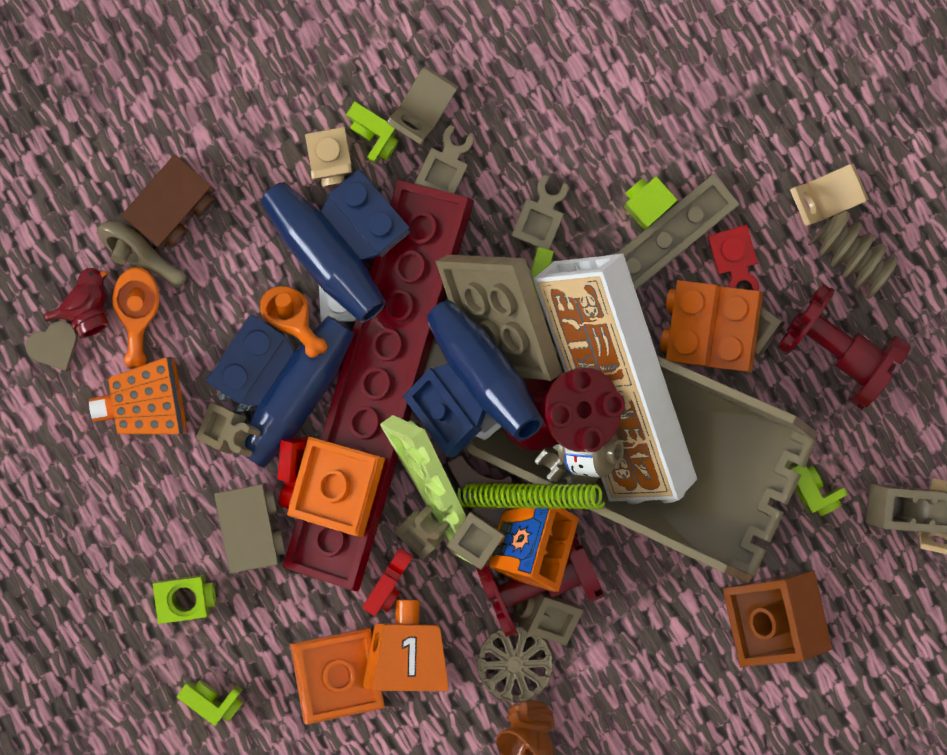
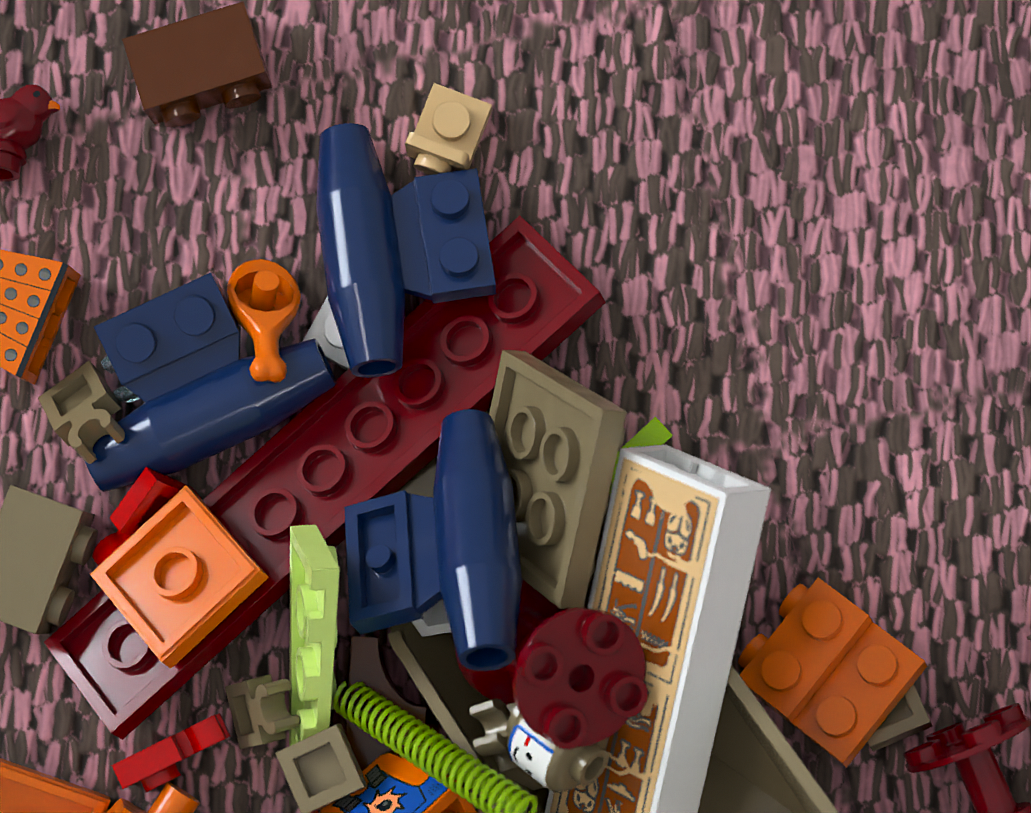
camera: 30 degrees right, 5 degrees down
(122, 238) = (108, 75): dark tan piece -> none
(135, 305) = (68, 173): orange piece -> none
(369, 125) = (526, 120): lime bracket -> none
(423, 105) = (615, 137): dark tan bracket -> none
(443, 169) = (592, 238): dark tan plate -> none
(539, 220) = (678, 383): dark tan plate -> none
(648, 201) = (842, 447): lime plate -> none
(677, 229) = (861, 509): dark tan plate -> none
(733, 253) = (916, 588): red plate -> none

